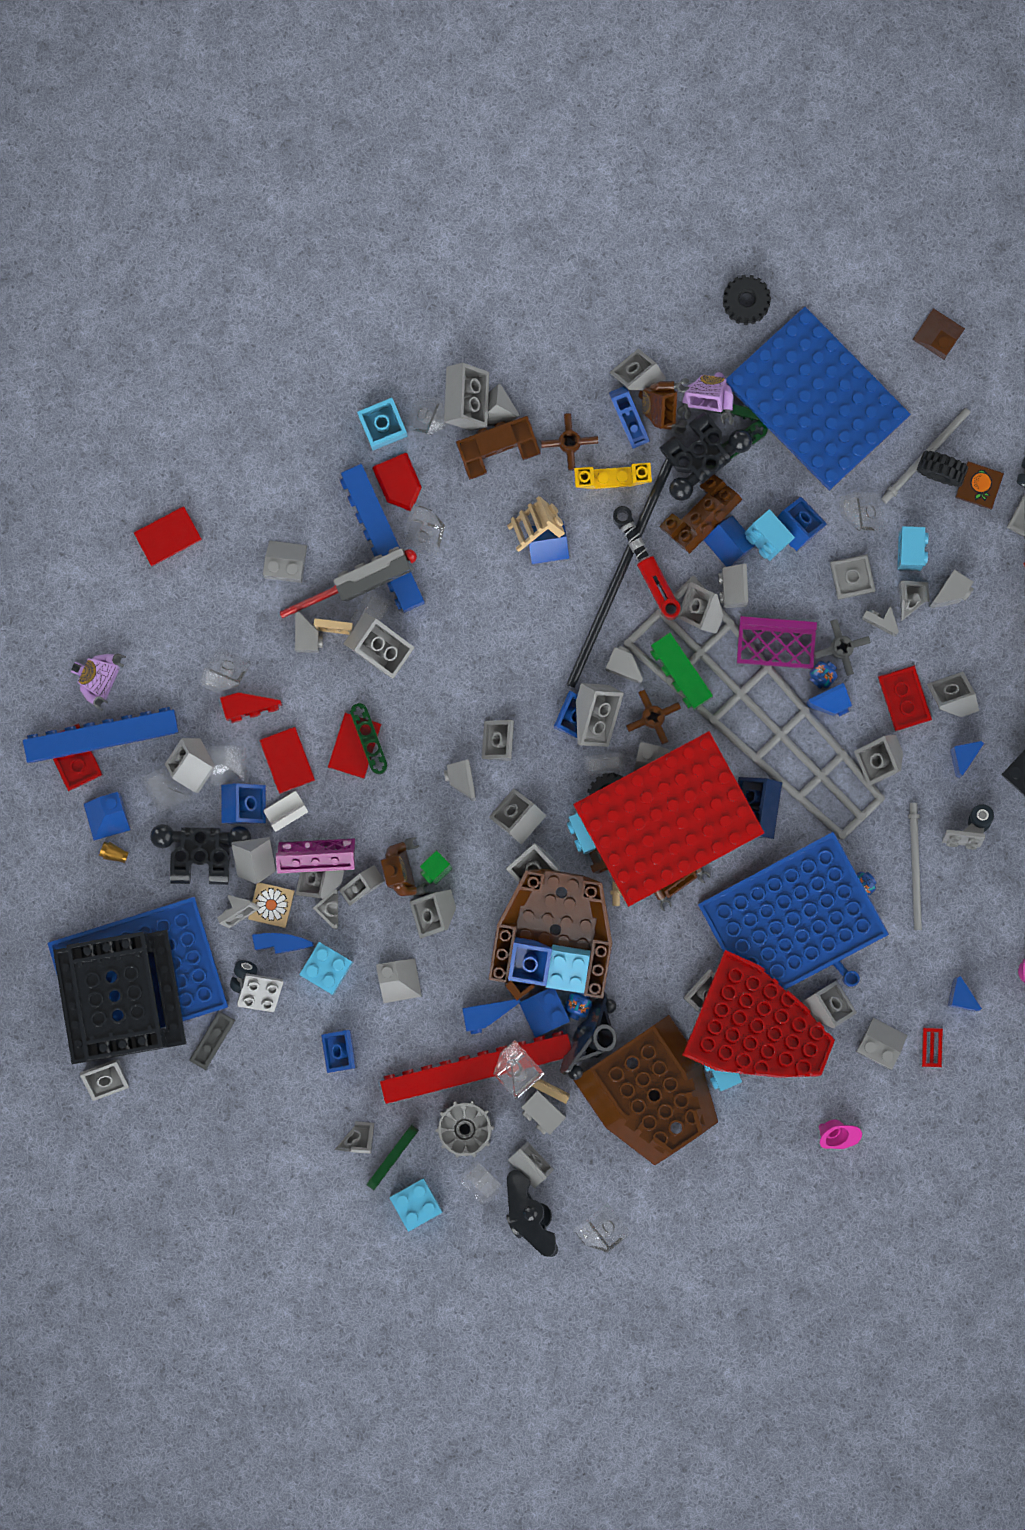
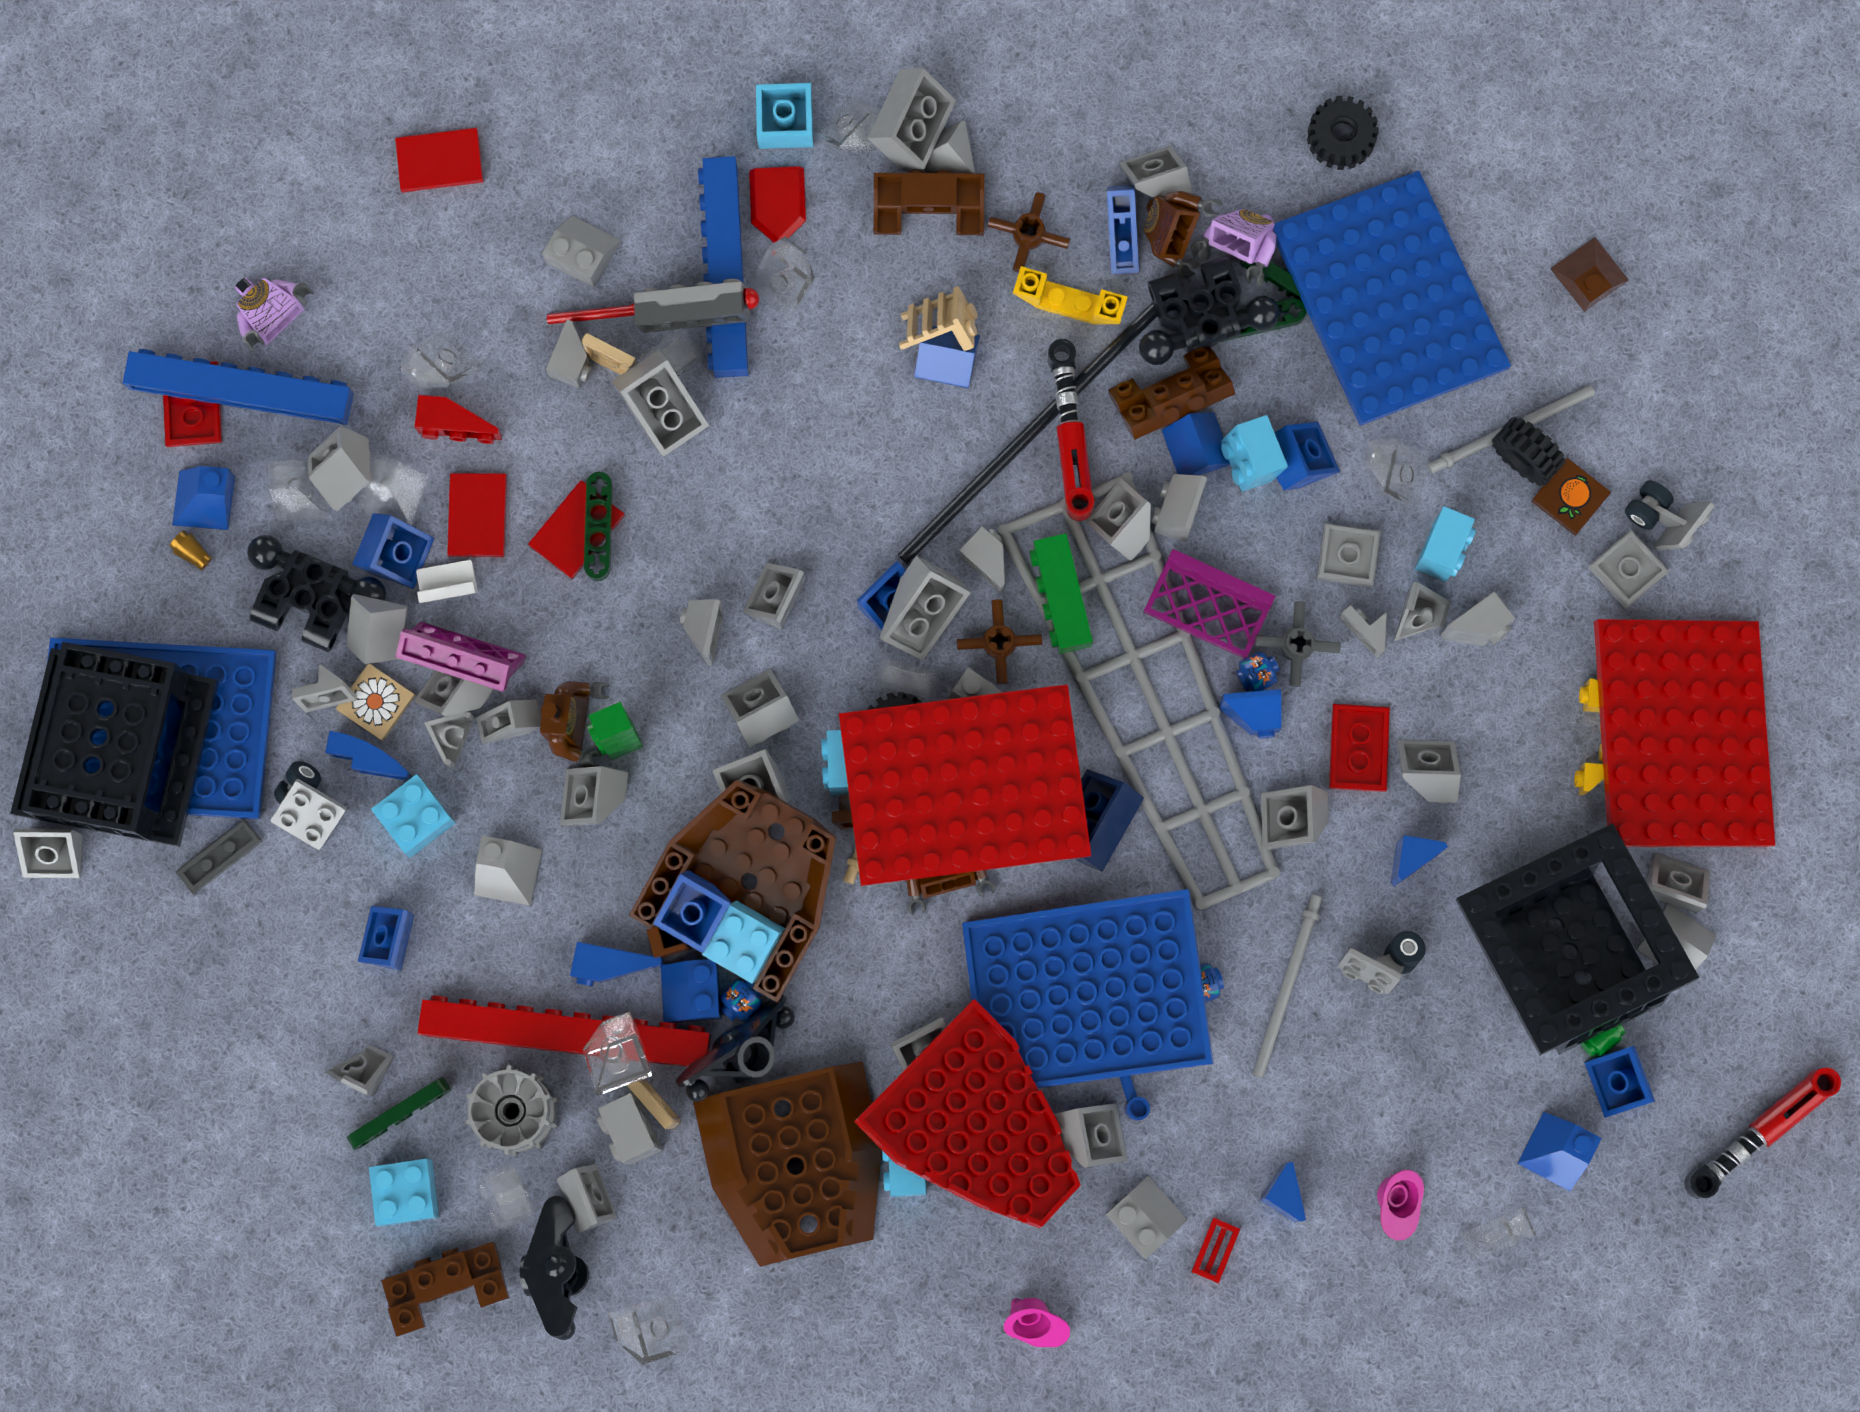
camera: 15 degrees right, 5 degrees down
(460, 1248) = (436, 1279): none -> reddish brown bracket

